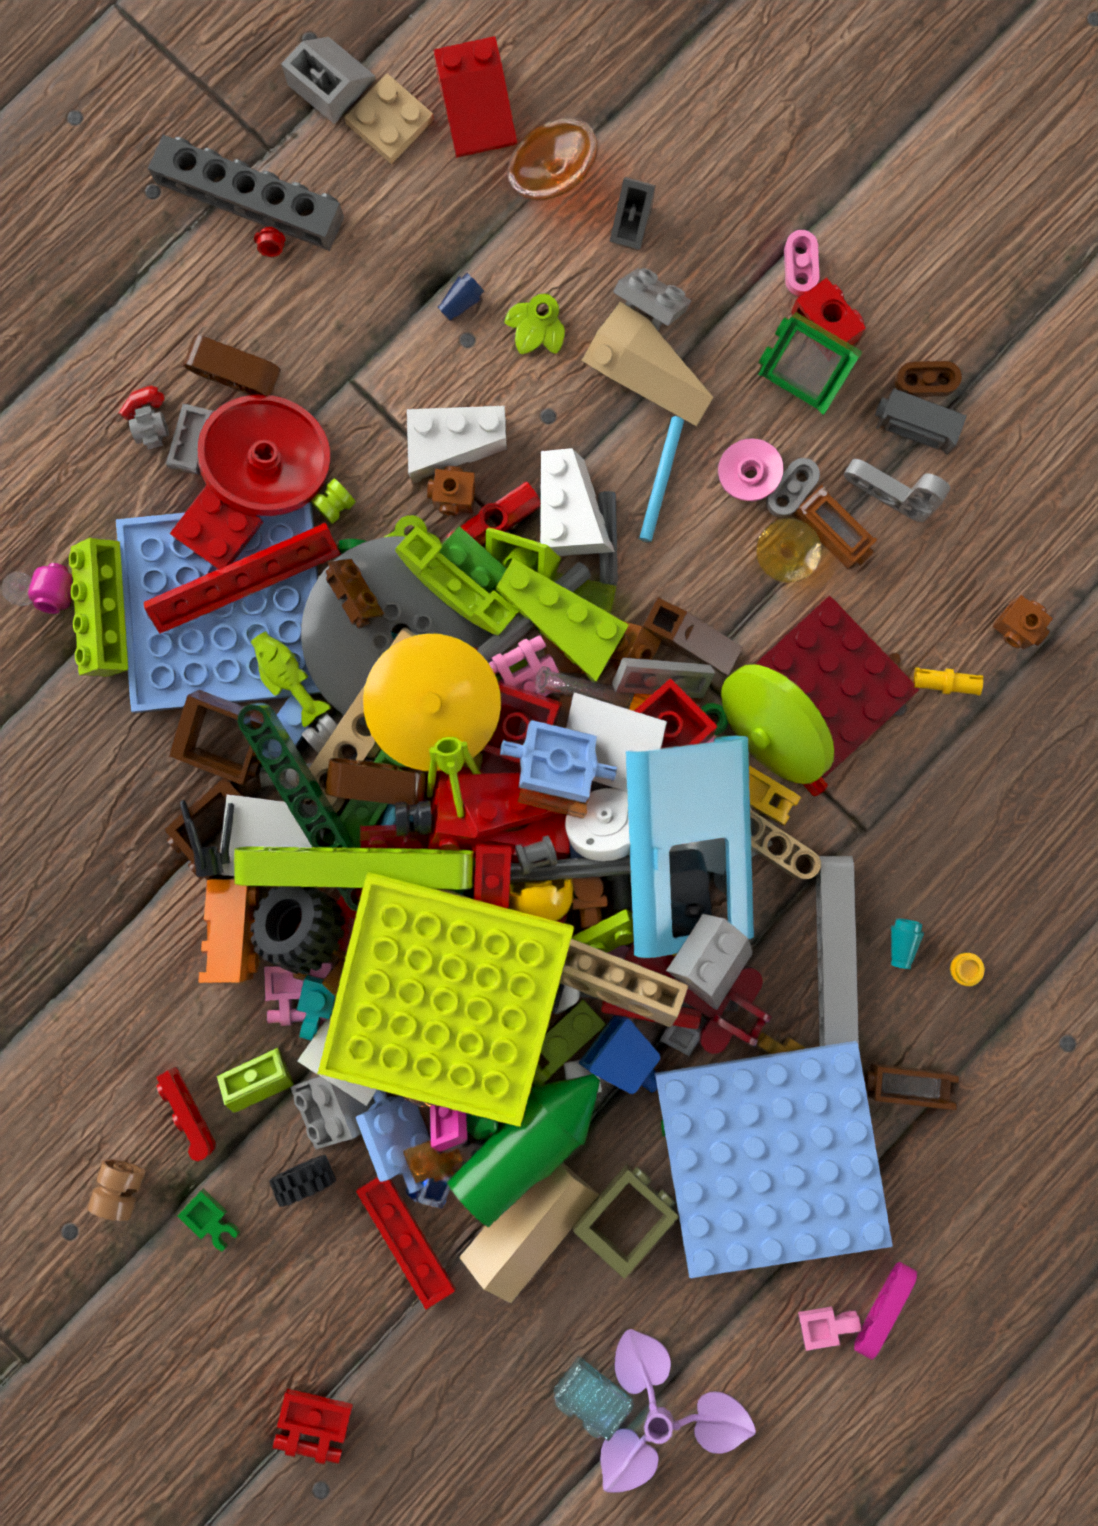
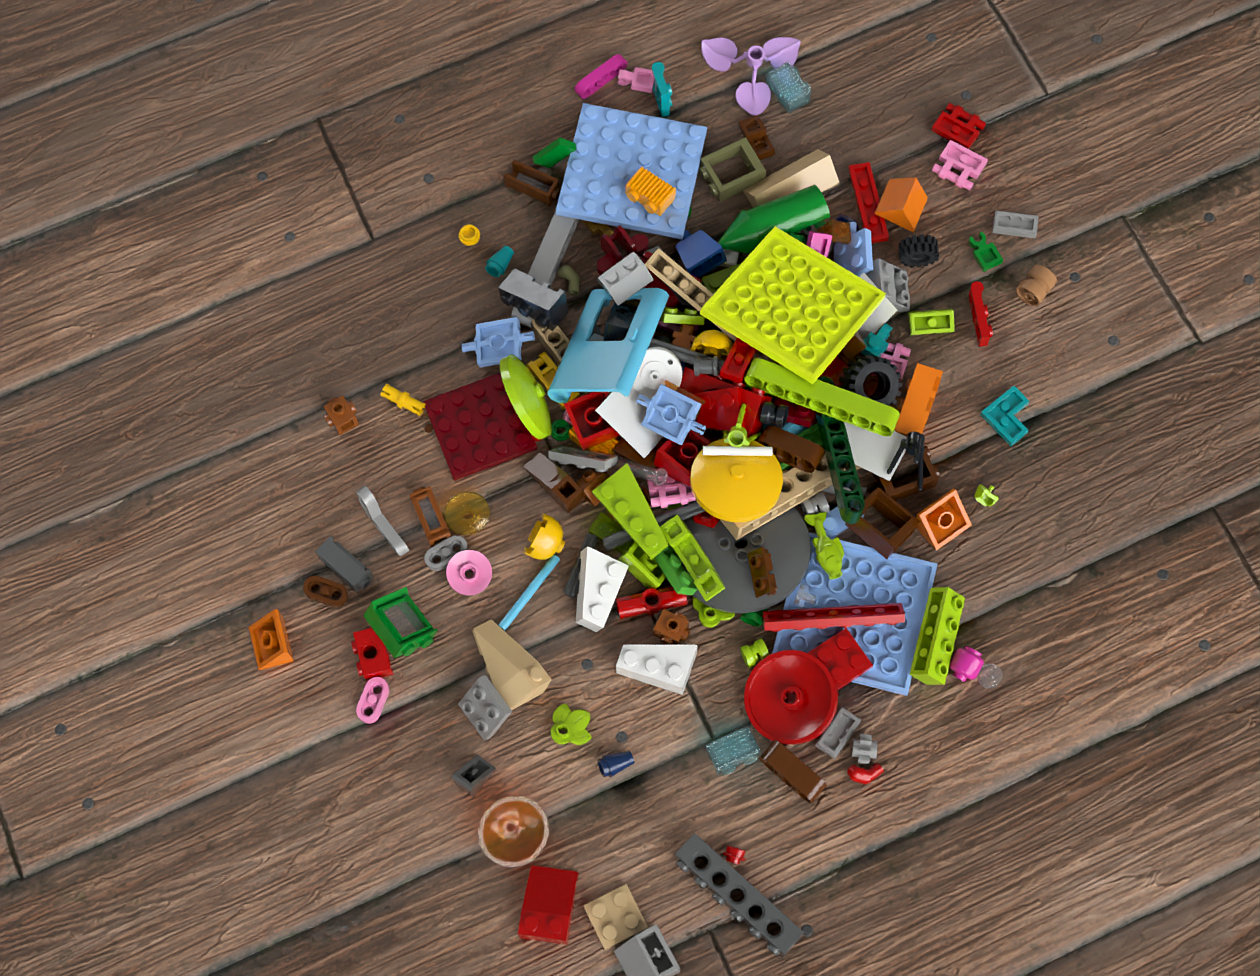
camera: 155 degrees left, 15 degrees down
(96, 838) = (985, 496): none -> lime piece
(109, 965) = (1001, 415): none -> teal plate
(144, 779) = (943, 520): none -> orange slope
(177, 1285) = (1015, 224): none -> light grey plate
(286, 1366) = (962, 159): none -> bright pink plate
(292, 592) = (804, 596): none -> clear tile
(317, 365) = (733, 750): none -> clear light blue brick
(355, 1257) = (902, 202): none -> orange slope
(455, 730) = (737, 451): none -> white bar
(610, 1291) = (756, 135): none -> reddish brown slope
(668, 549) = (545, 538): none -> yellow cylinder
(729, 1120) = (650, 191): none -> light orange brick
(779, 1312) = (661, 89): none -> teal plate
(791, 957) = (573, 278): none -> olive arm
(830, 882) = (533, 299): none -> wedge
(853, 813) = (497, 340): none -> light blue plate
(899, 1143) = (554, 153): none -> green tile
(964, 290) = (271, 641): none -> orange slope

